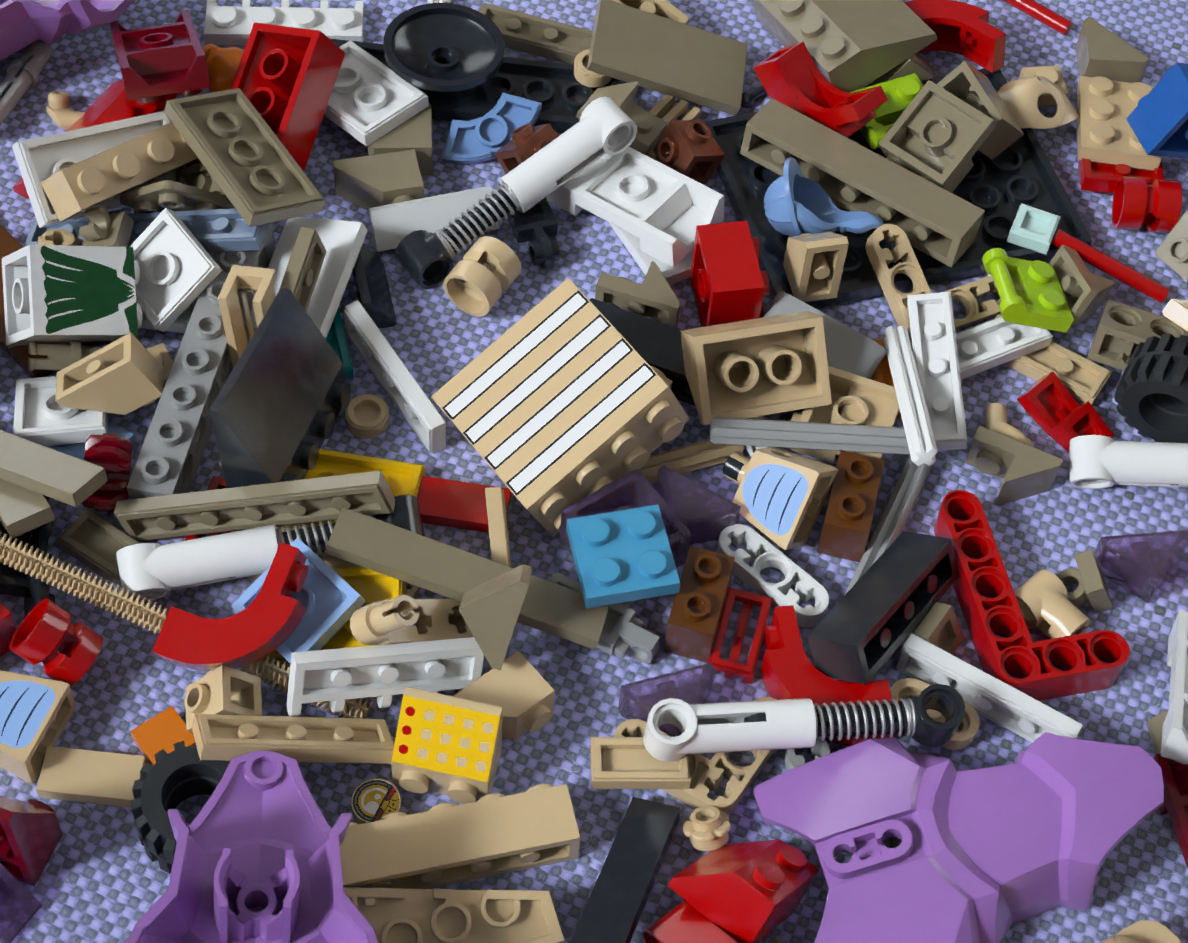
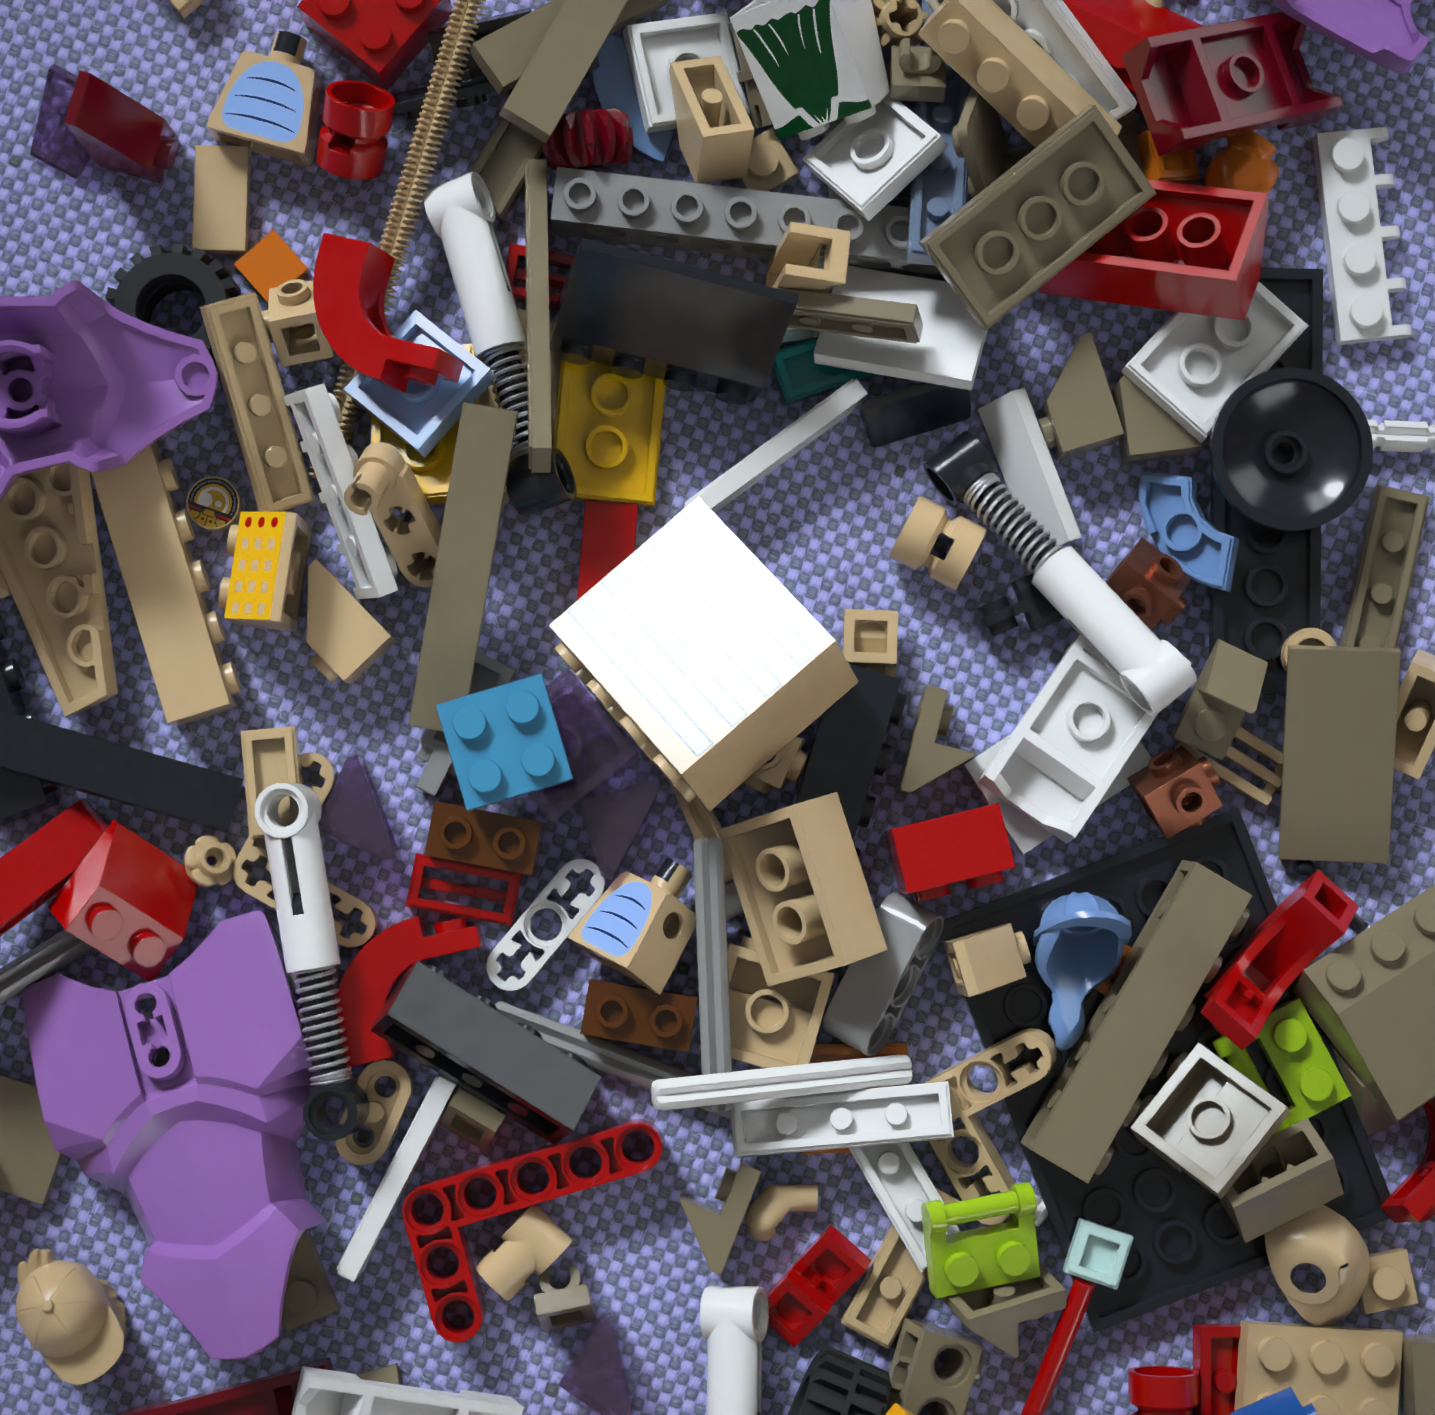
camera: 85 degrees right, 30 degrees up
(367, 416) = (724, 429): tan tile -> none
(493, 611) = (407, 600): dark tan slope -> none
(498, 525) = (539, 600): tan tile -> none

